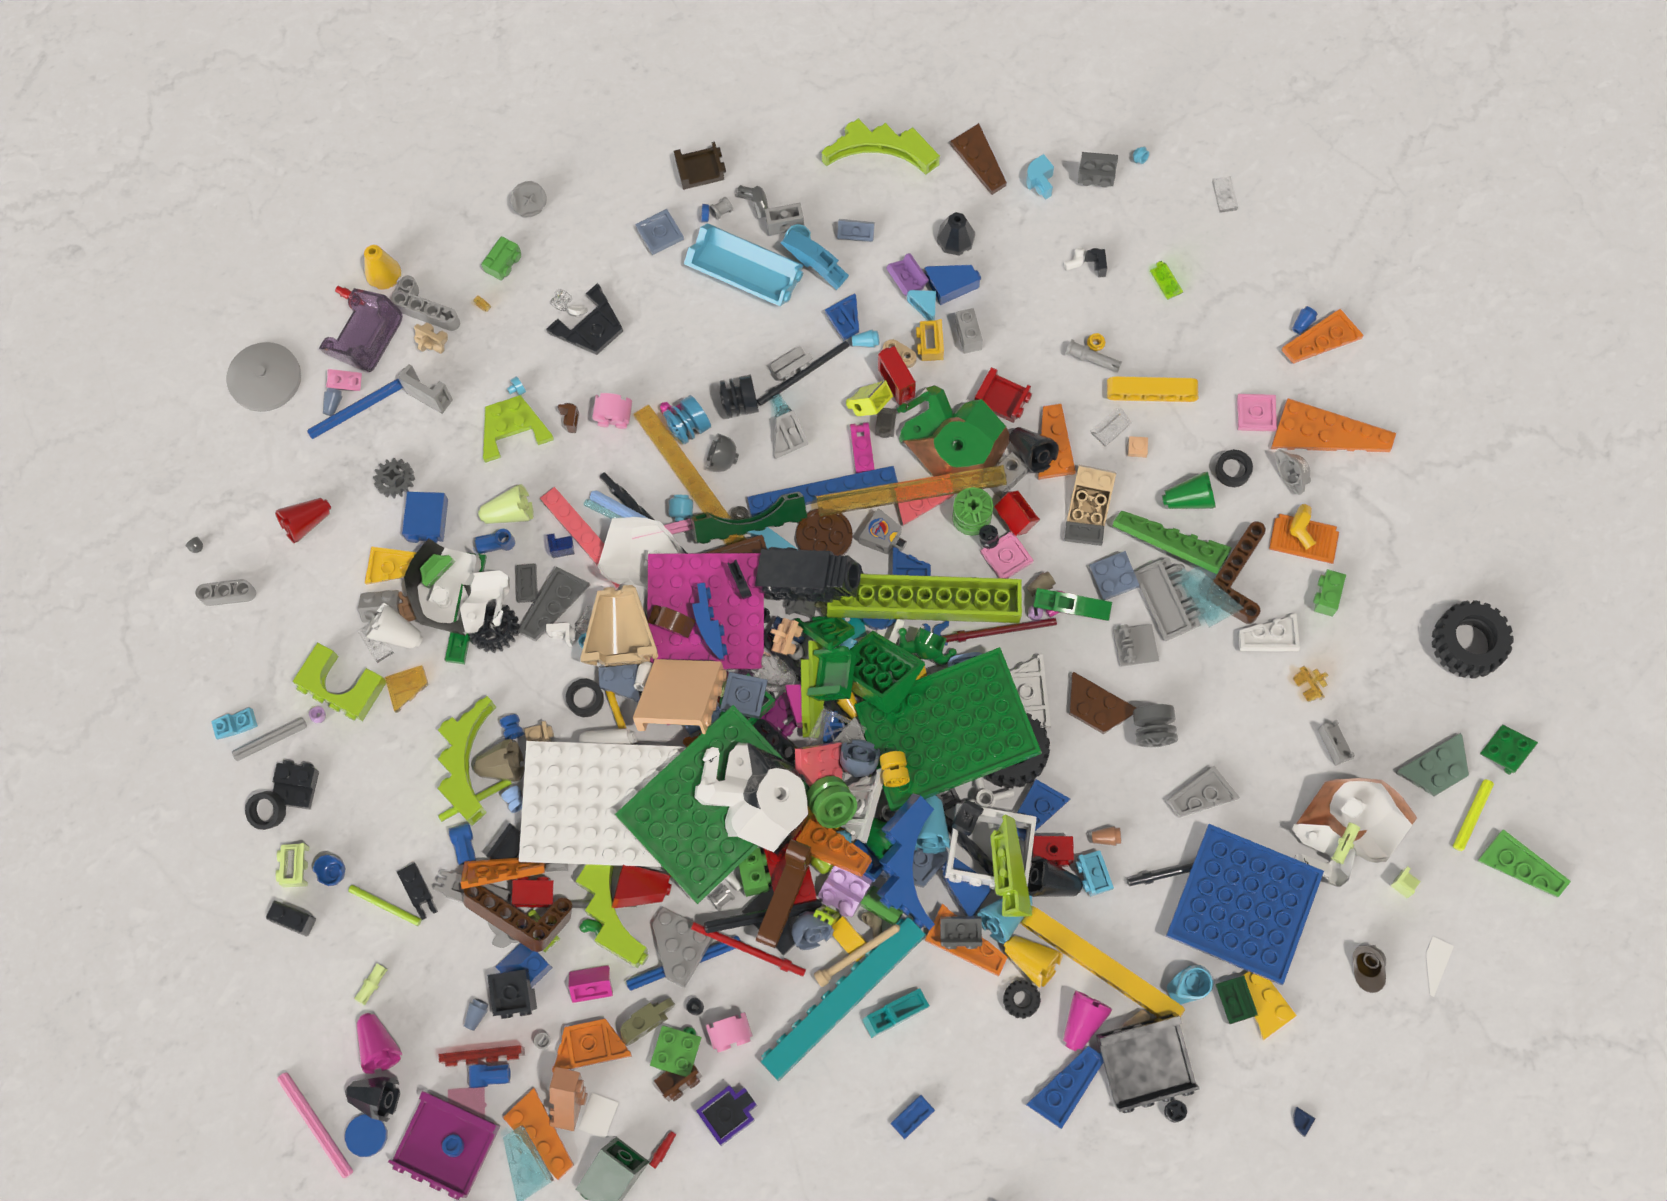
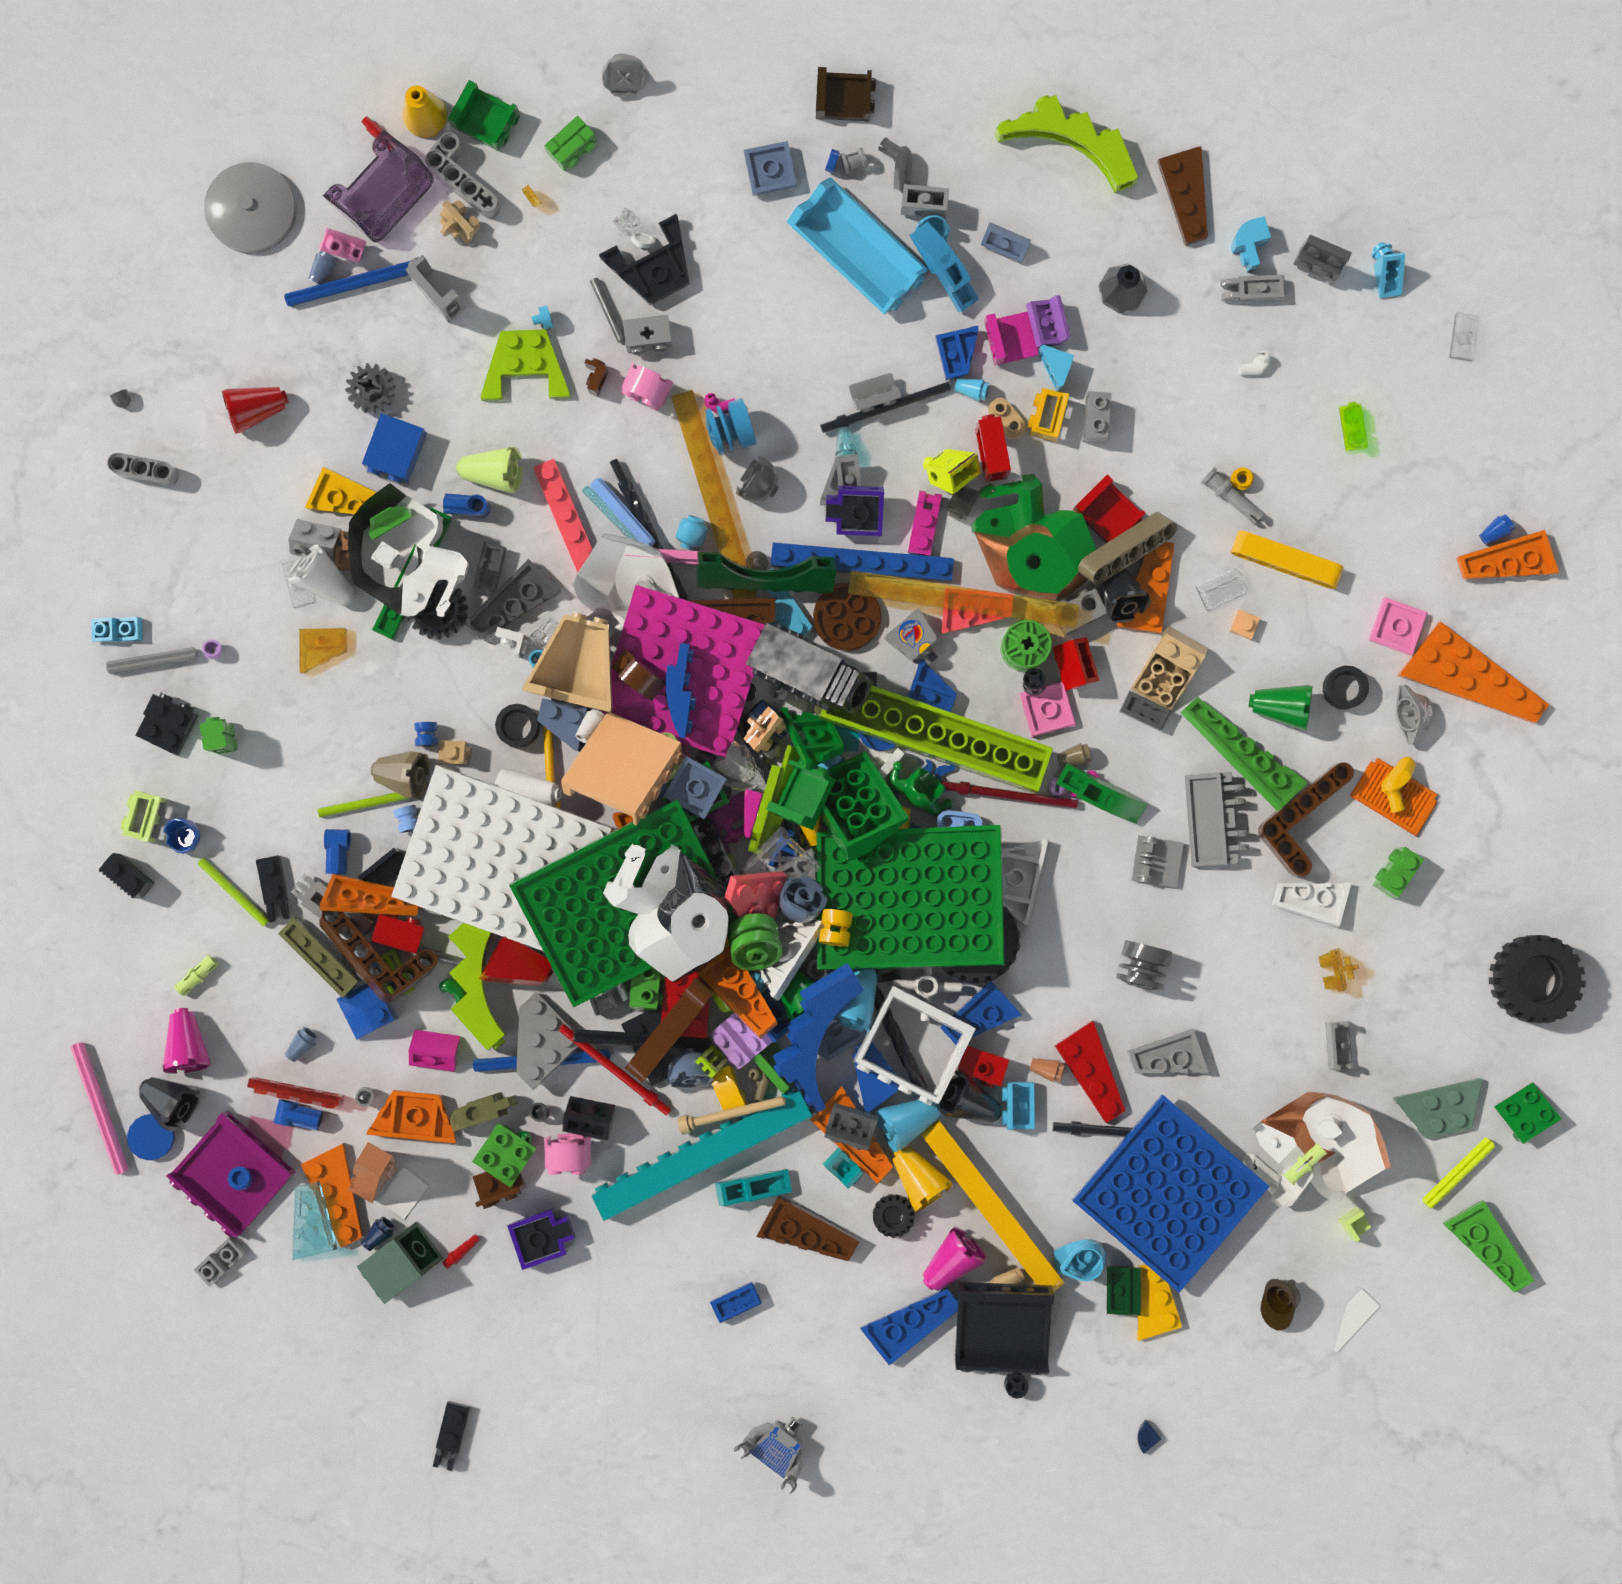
camera: 10 degrees right, 15 degrees up
(252, 815) = (141, 738): black tyre -> none
(340, 779) = (218, 736): none -> bright green brick
(354, 703) = (216, 607): lime arch -> none
(428, 260) = (483, 116): none -> green panel
(460, 736) = (353, 754): lime arch -> none
(471, 935) = (319, 957): none -> olive plate
(511, 993) = (345, 1038): black plate -> none
(560, 546) = (540, 533): clear blue panel -> none
(565, 368) = (606, 307): none -> flat silver bar
(586, 1155) = (378, 1233): none -> dark blue cone
(592, 374) = (636, 330): none -> light grey brick
(738, 396) = (799, 416): black wheel -> none
(738, 996) = (588, 1118): none -> black brick
(739, 579) = (730, 652): black piece -> none
(805, 451) = (856, 510): none -> piece
(882, 295) = (1010, 338): none -> dark pink bracket
(949, 1035) = (803, 1229): none -> reddish brown wing
(952, 281) = (1098, 346): blue slope -> none
(966, 971) = (843, 1168): none -> teal bracket
(967, 817) = (897, 1008): black bracket -> none
(1009, 870) = (925, 1080): lime wedge -> none
(1026, 414) = (1127, 548): none -> dark tan beam
(1054, 207) = (1255, 288): none -> light grey hinge
(1096, 705) = (1089, 917): reddish brown wing -> none
(1097, 256) = (1283, 379): black bracket -> none
(1114, 575) = (1161, 772): sand blue plate -> none
(1141, 824) = (1089, 1065): none -> red wing
(1152, 167) = (1389, 274): none -> medium azure slope
(1209, 598) = (1258, 838): clear light blue wing -> none

